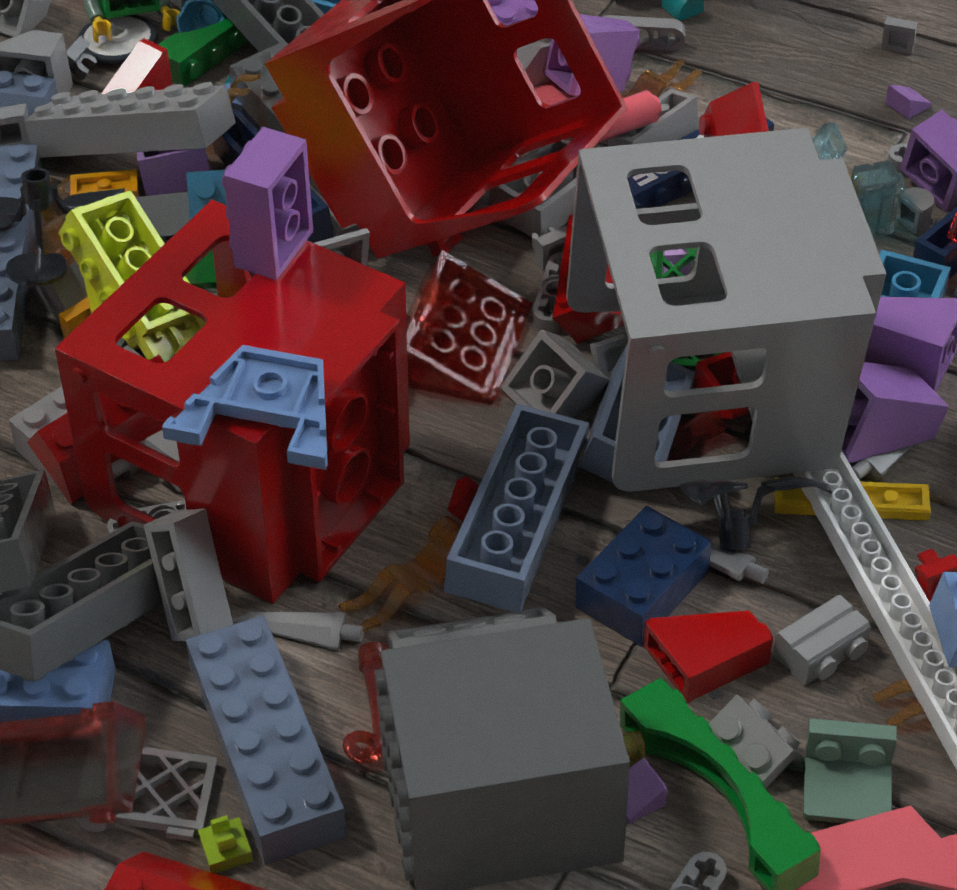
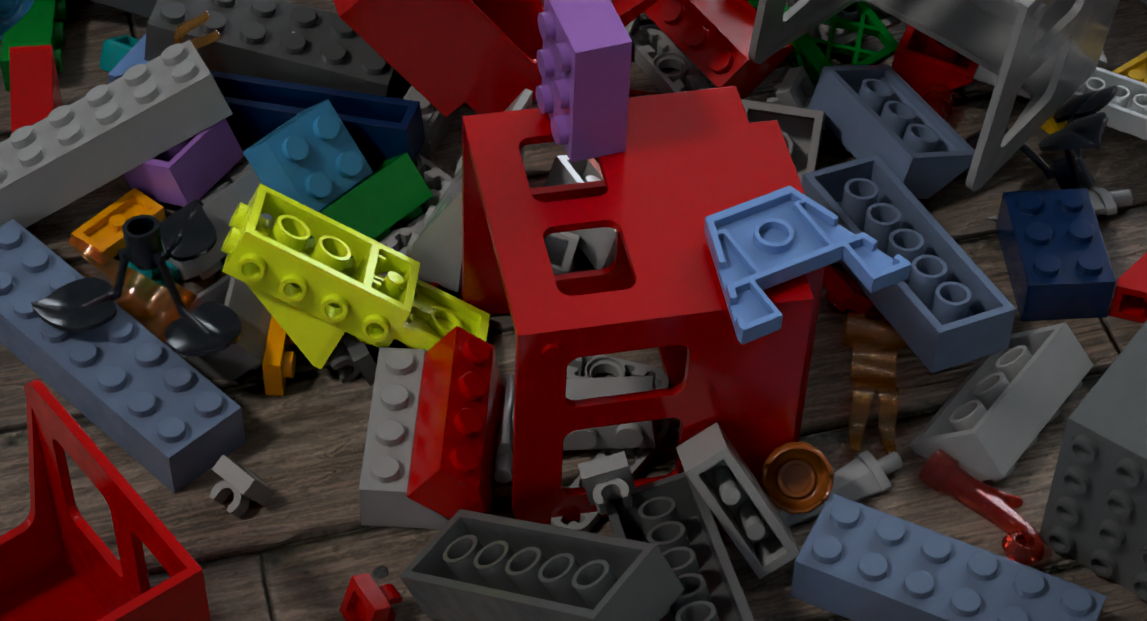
camera: 45 degrees left, 0 degrees up
(129, 508) = (607, 480): none -> light grey tile
(251, 588) = (797, 477): none -> dark orange hair

